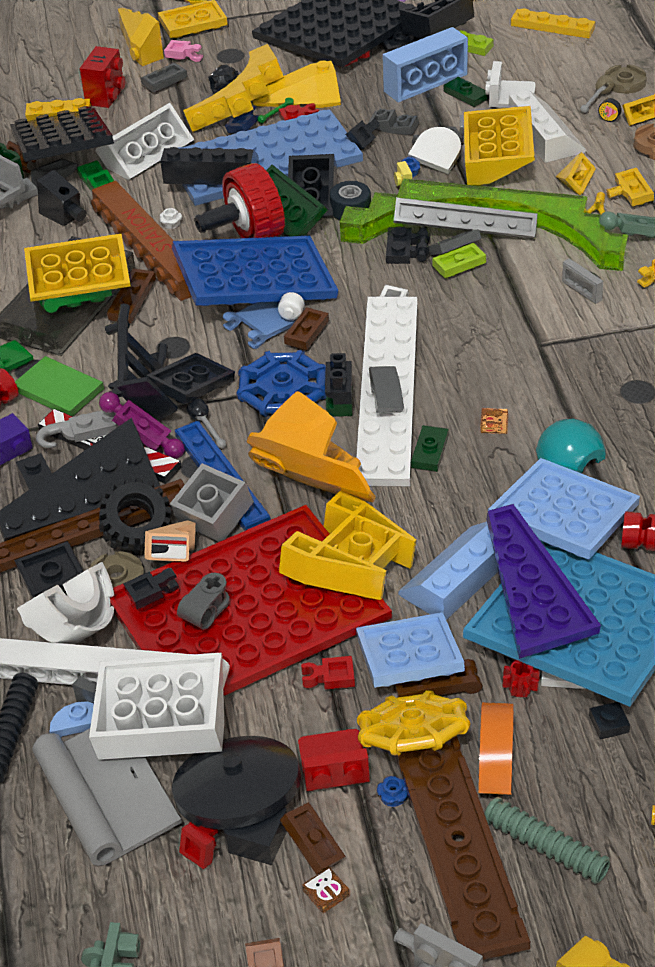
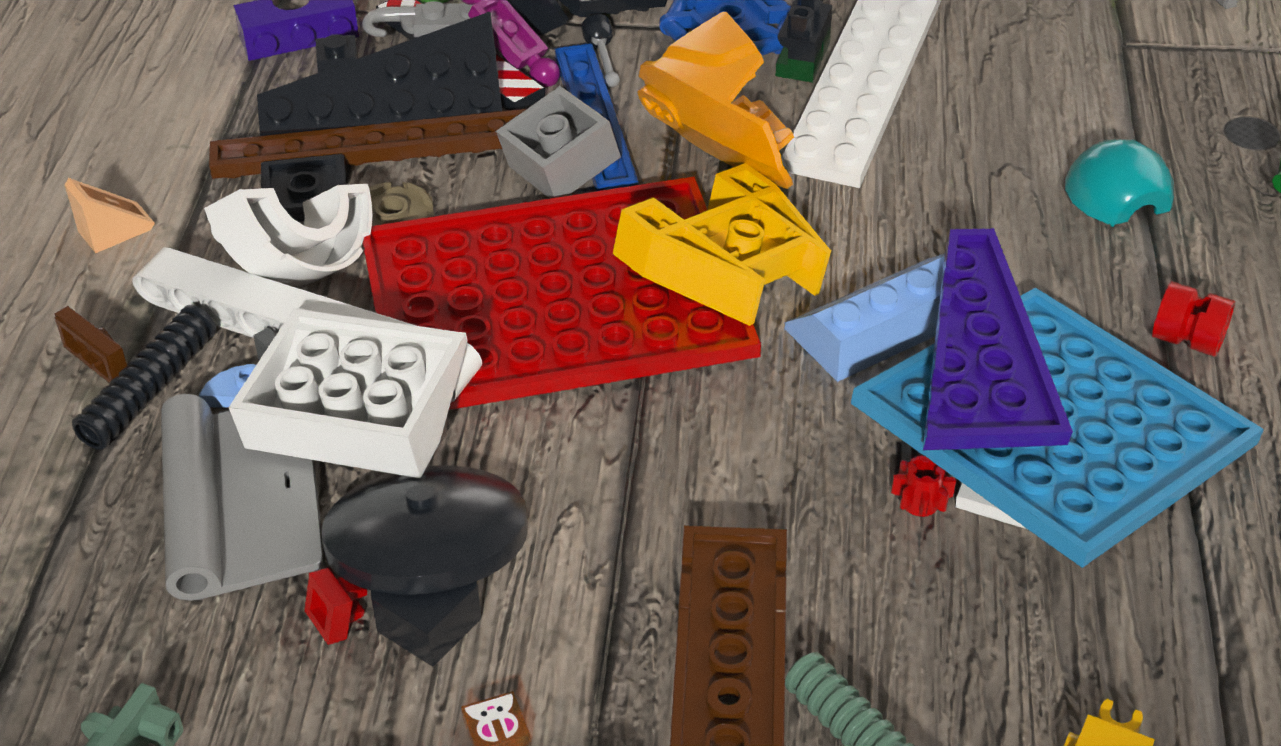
camera: 15 degrees right, 0 degrees up
(128, 495) = (442, 108): black tyre -> none
(148, 589) = (416, 233): black plate -> none
(170, 542) = (479, 181): slope -> none
(204, 601) = (485, 270): dark grey piece -> none
(312, 838) = (502, 640): reddish brown plate -> none
(333, 759) = (585, 534): red bracket -> none
(334, 673) = (637, 413): red plate -> none
(386, 389) = (867, 49): dark grey slope -> none
(392, 797) = (658, 613): blue plate -> none
(409, 650) = (764, 405): light blue plate -> none
(413, 723) = (724, 508): yellow plate -> none
(429, 448) = (907, 143): dark green plate -> none
(444, 684) = (793, 458): reddish brown plate -> none
(494, 420) = (1017, 127): clear orange tile -> none
(496, 748) = (840, 577): orange arch -> none
(568, 507) = (1086, 261): light blue plate -> none
(609, 720) = (1046, 584): black plate -> none

